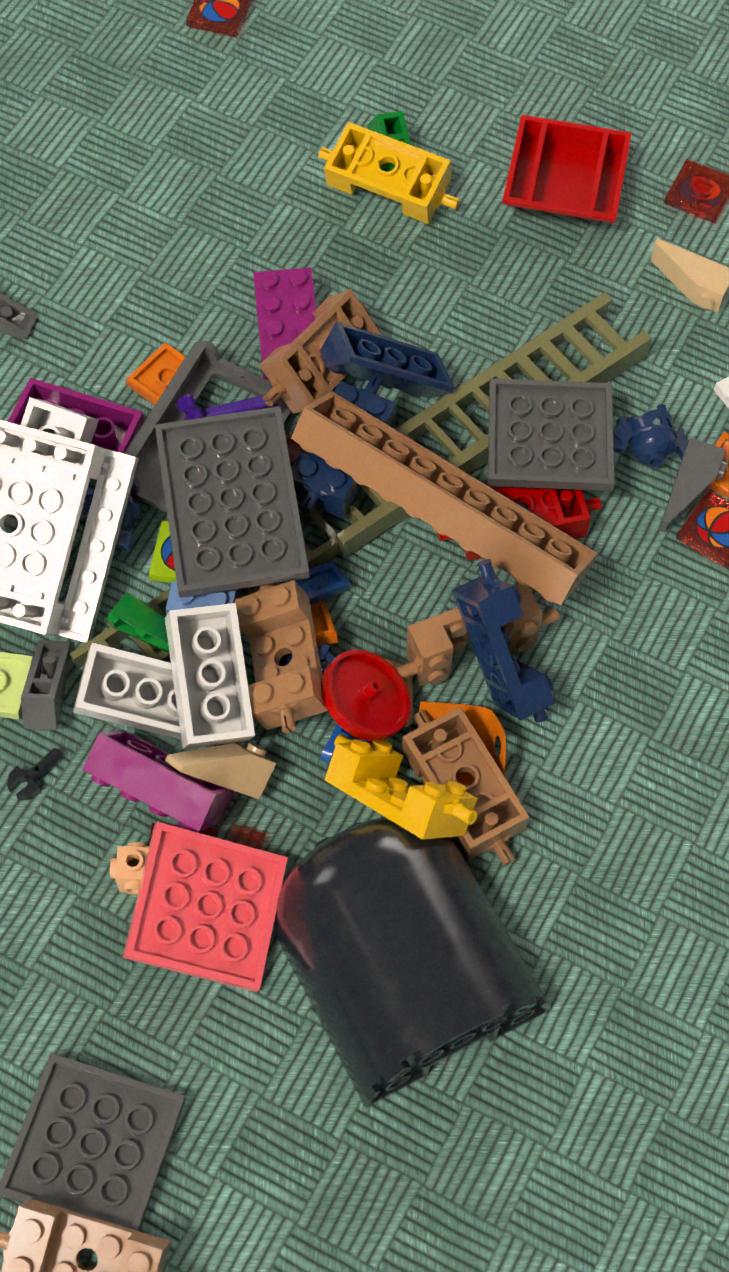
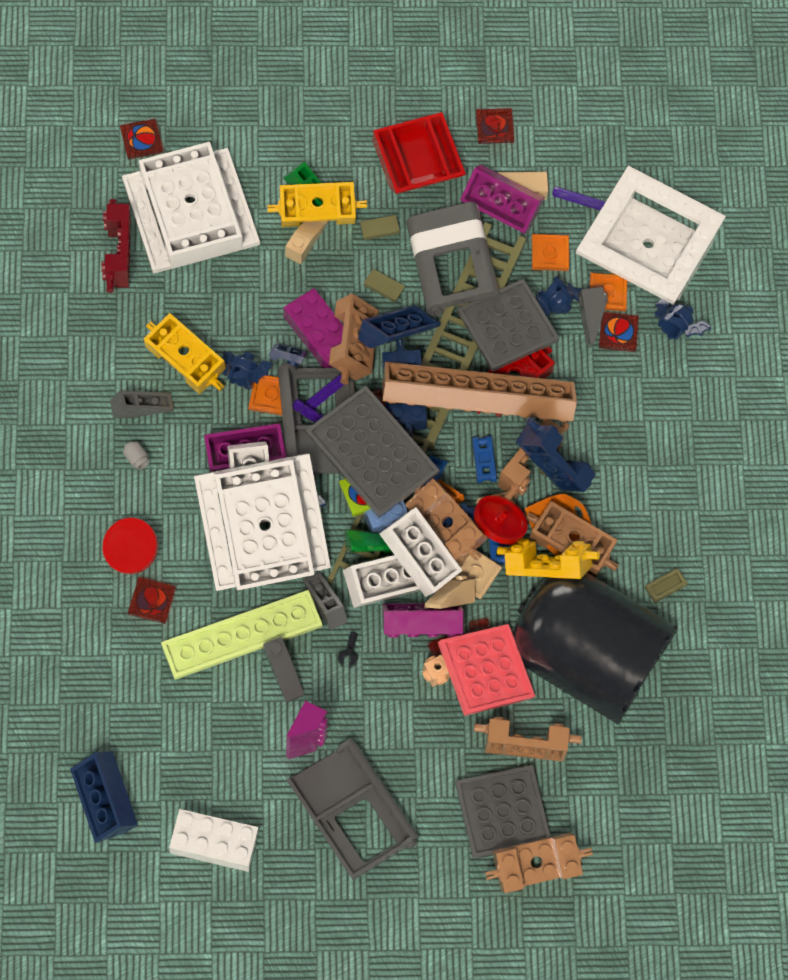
camera: 35 degrees left, 5 degrees up
(80, 131) = (117, 266): none -> dark red brick
(91, 292) = (198, 367): none -> yellow brick
(147, 326) = (244, 369): none -> dark blue helmet
(156, 1023) = (499, 741): none -> medium nougat brick
(218, 135) = (193, 231): none -> white piece
(221, 333) = (293, 355): none -> dark blue plate
(296, 756) = (483, 571): none -> tan tile
(345, 209) = (304, 240): none -> tan slope
(407, 604) = (484, 459): none -> blue plate
(416, 316) = (384, 285): none -> olive tile
(458, 243) = (379, 227): none -> olive tile
(539, 281) = (447, 232): none -> dark grey piece
(573, 930) = (666, 585): none -> olive tile
(650, 275) = (502, 198): none -> magenta brick
(681, 380) = (550, 252): none -> orange tile

